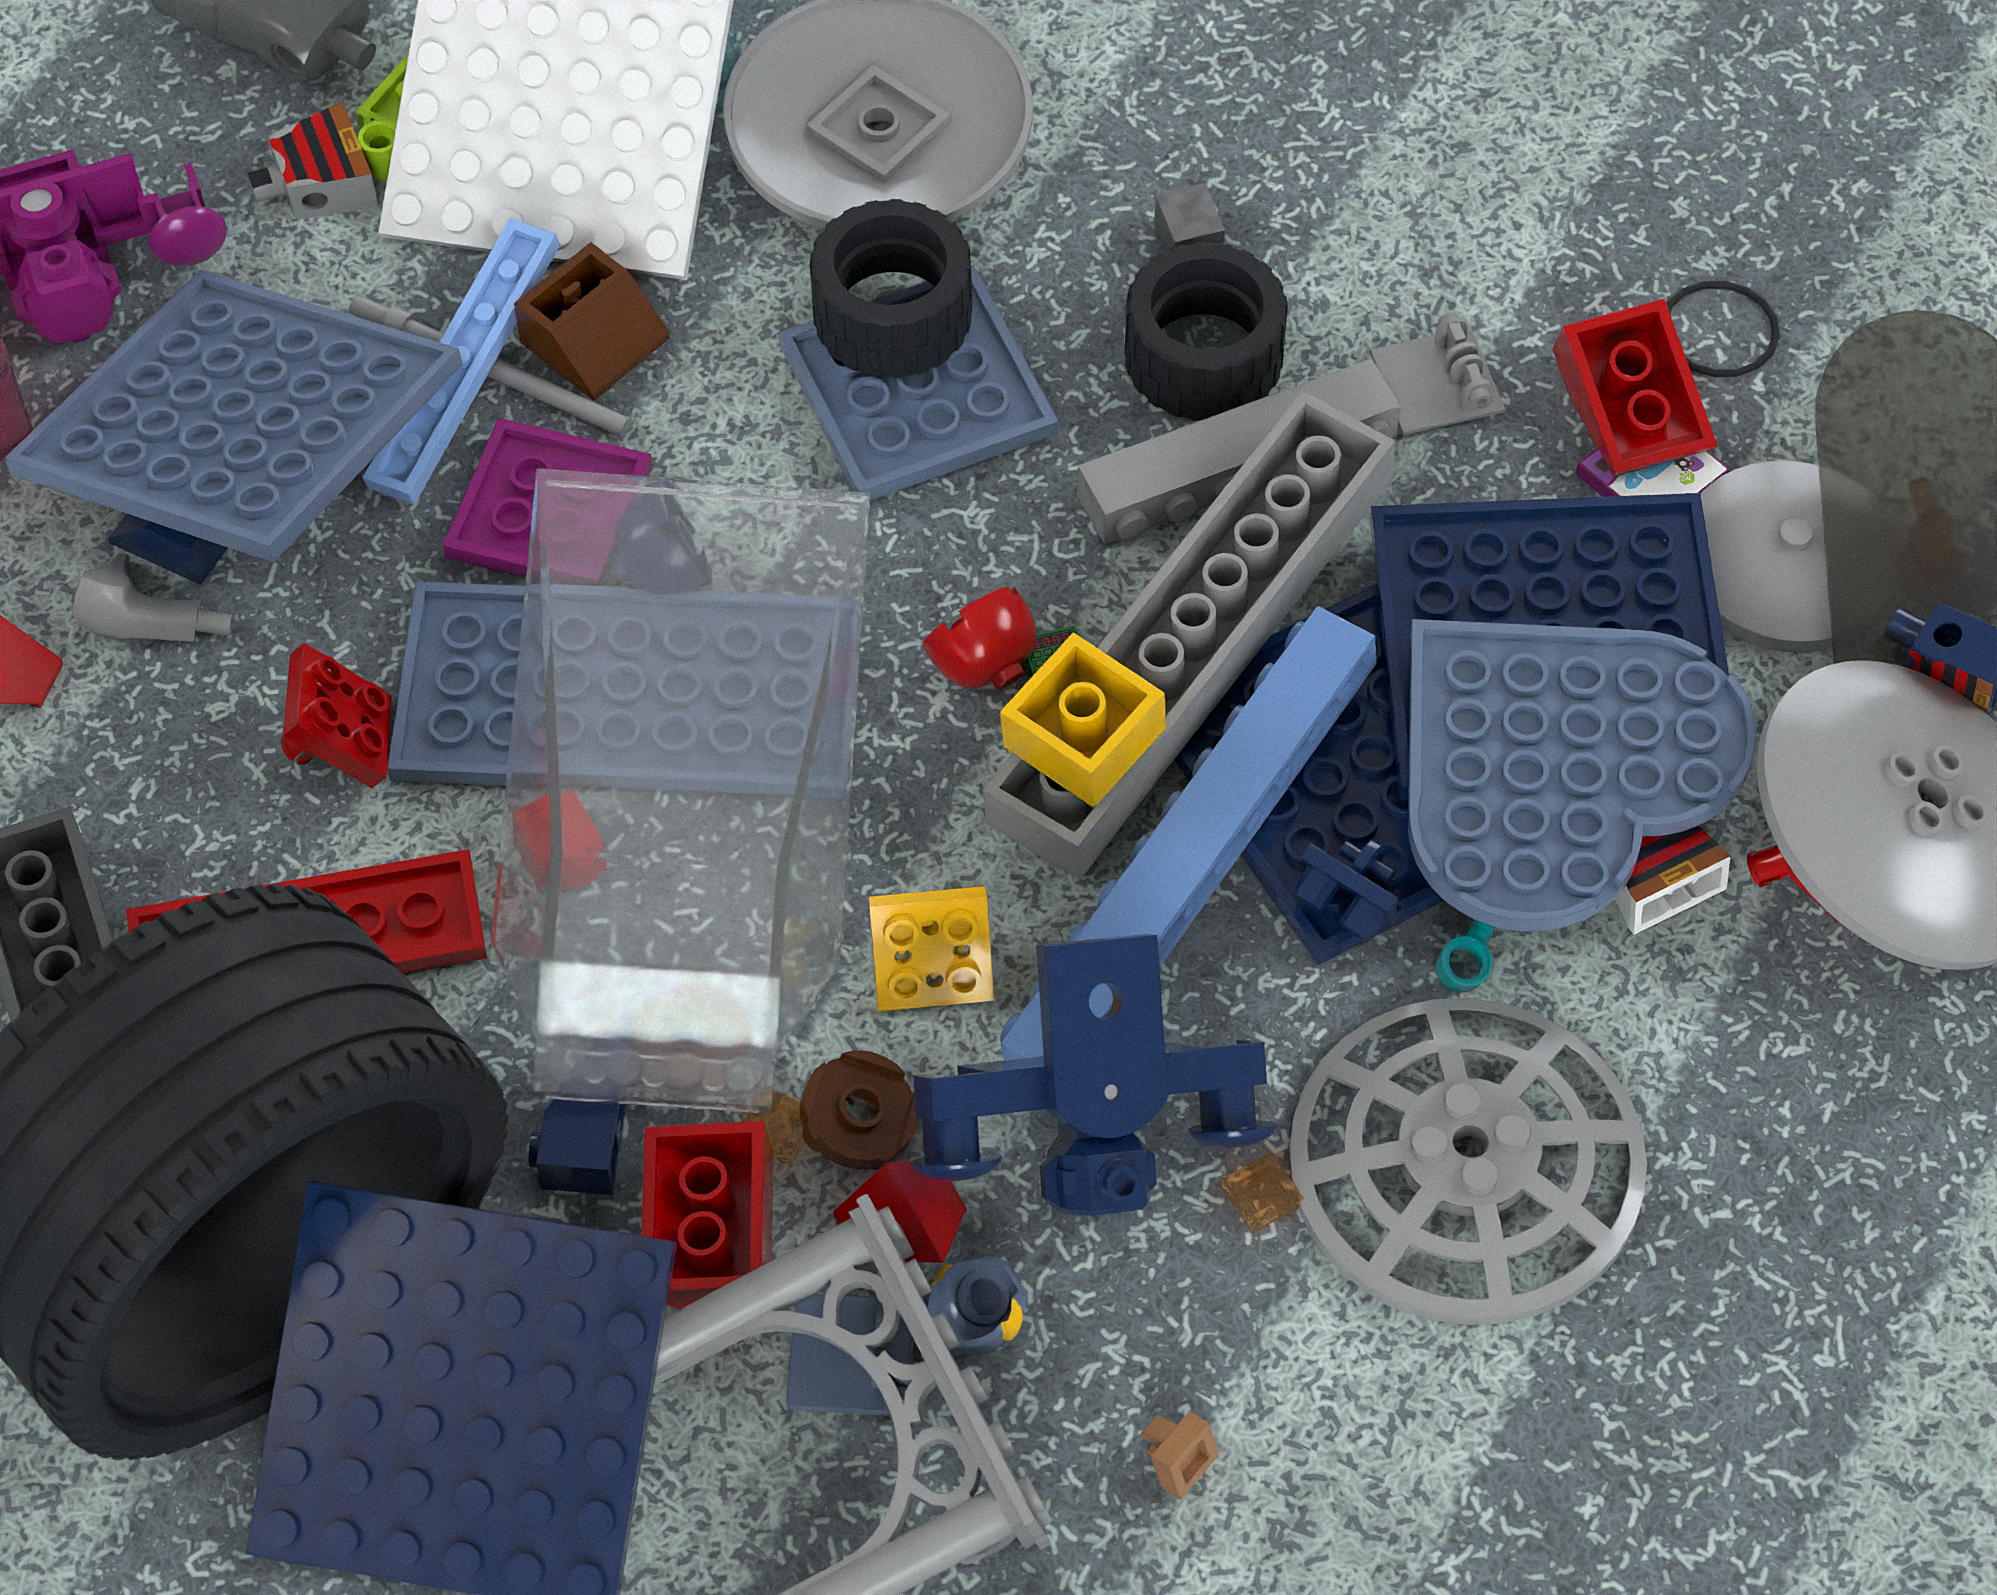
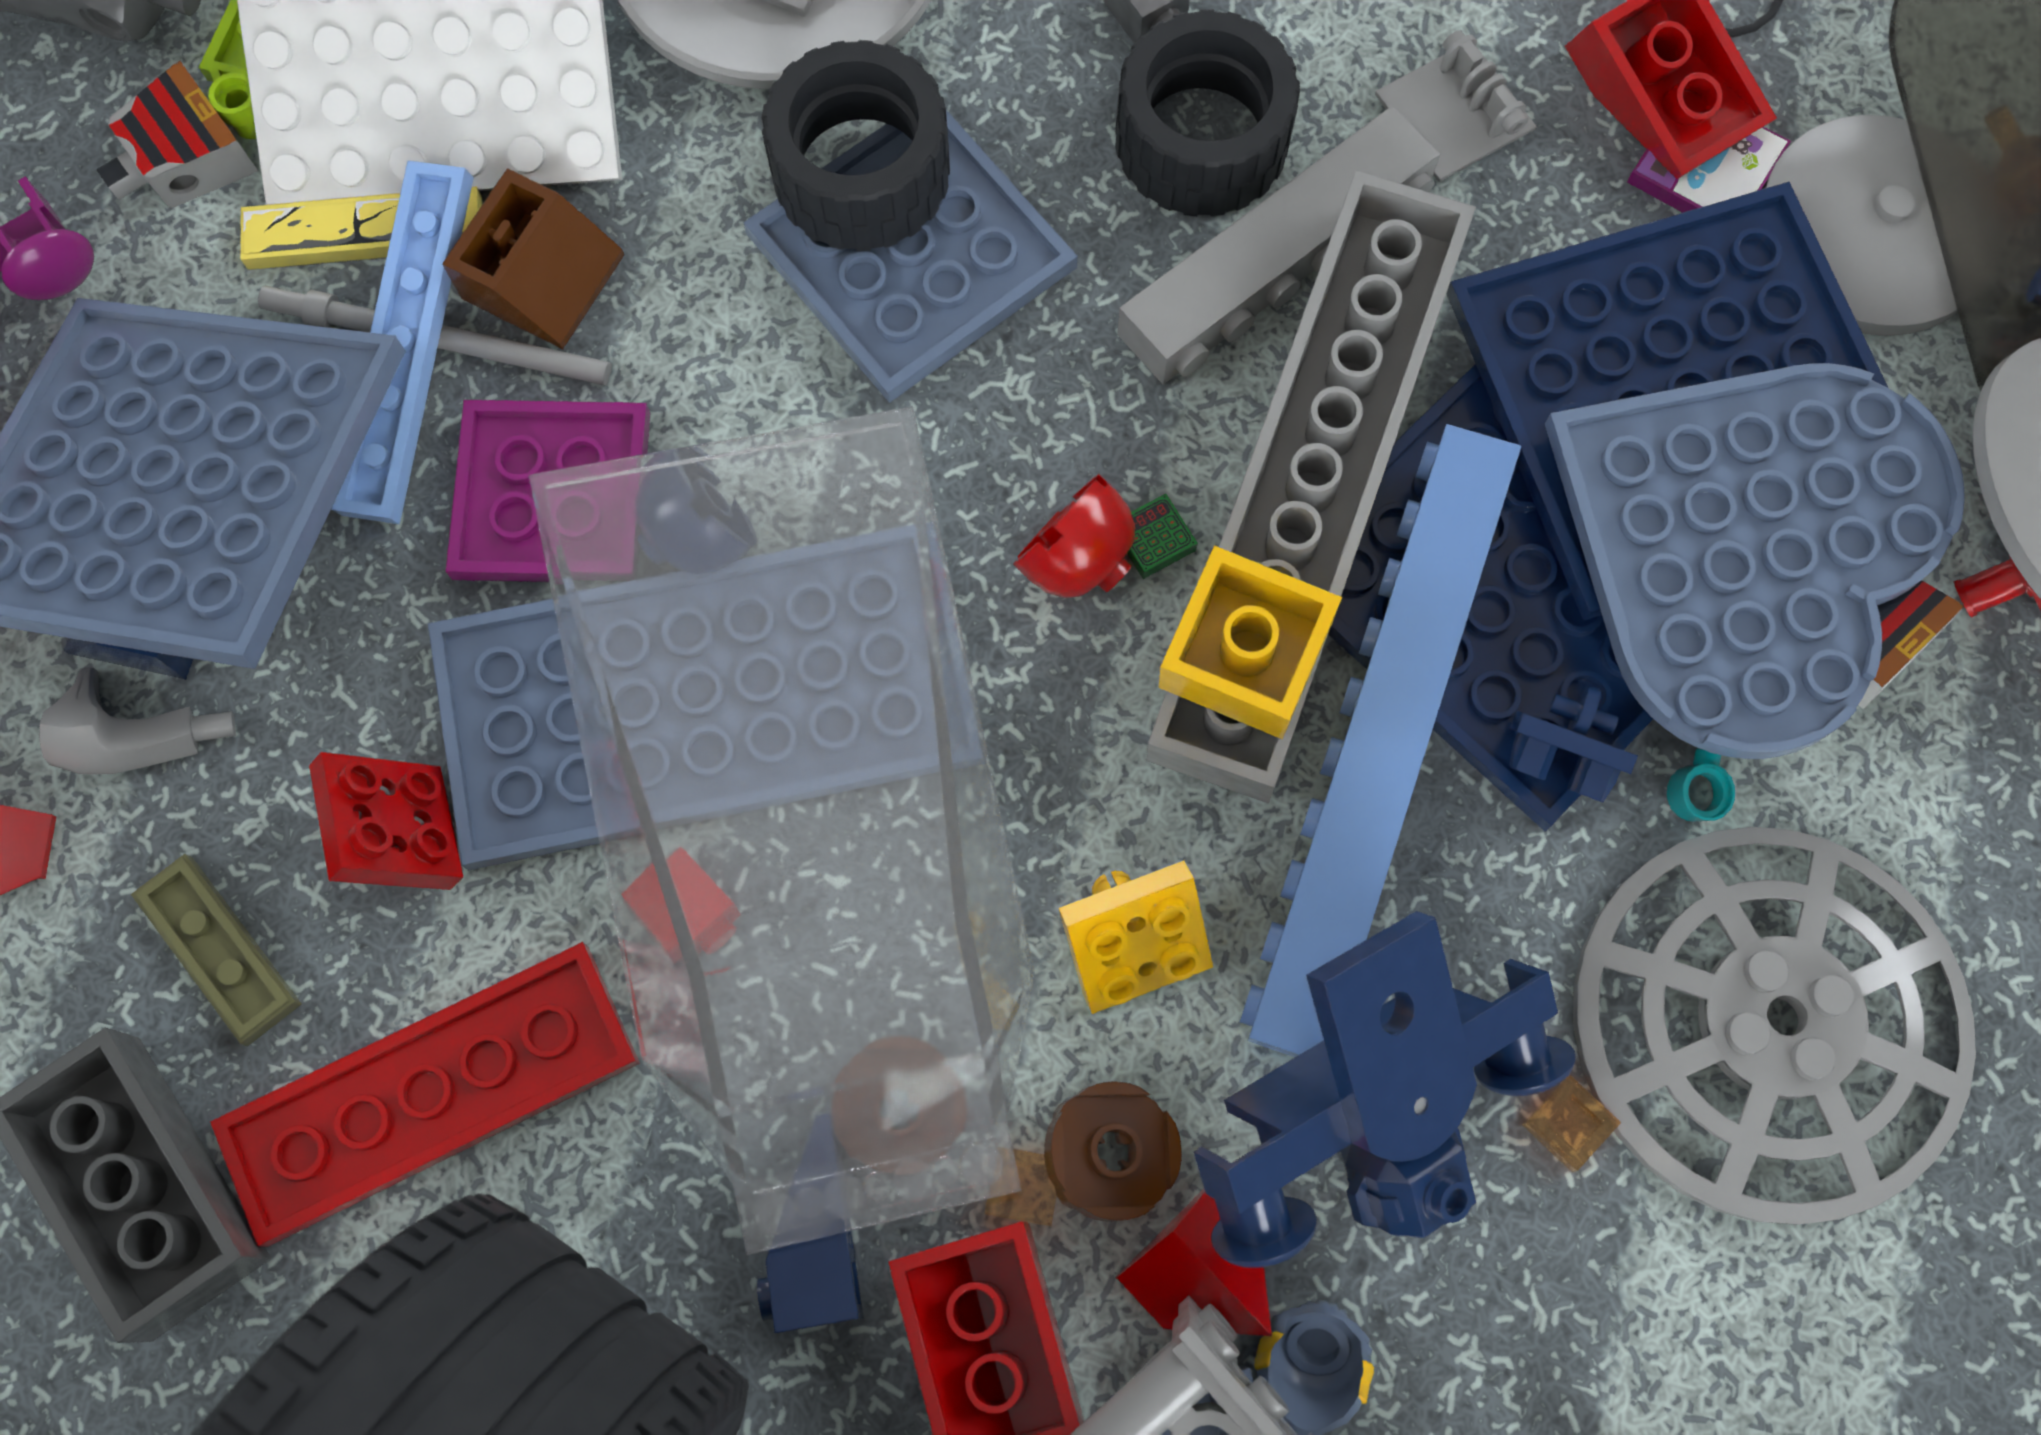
camera: 15 degrees left, 15 degrees up
(165, 791) = (216, 949): none -> olive tile
(418, 263) = (323, 230): none -> light yellow tile

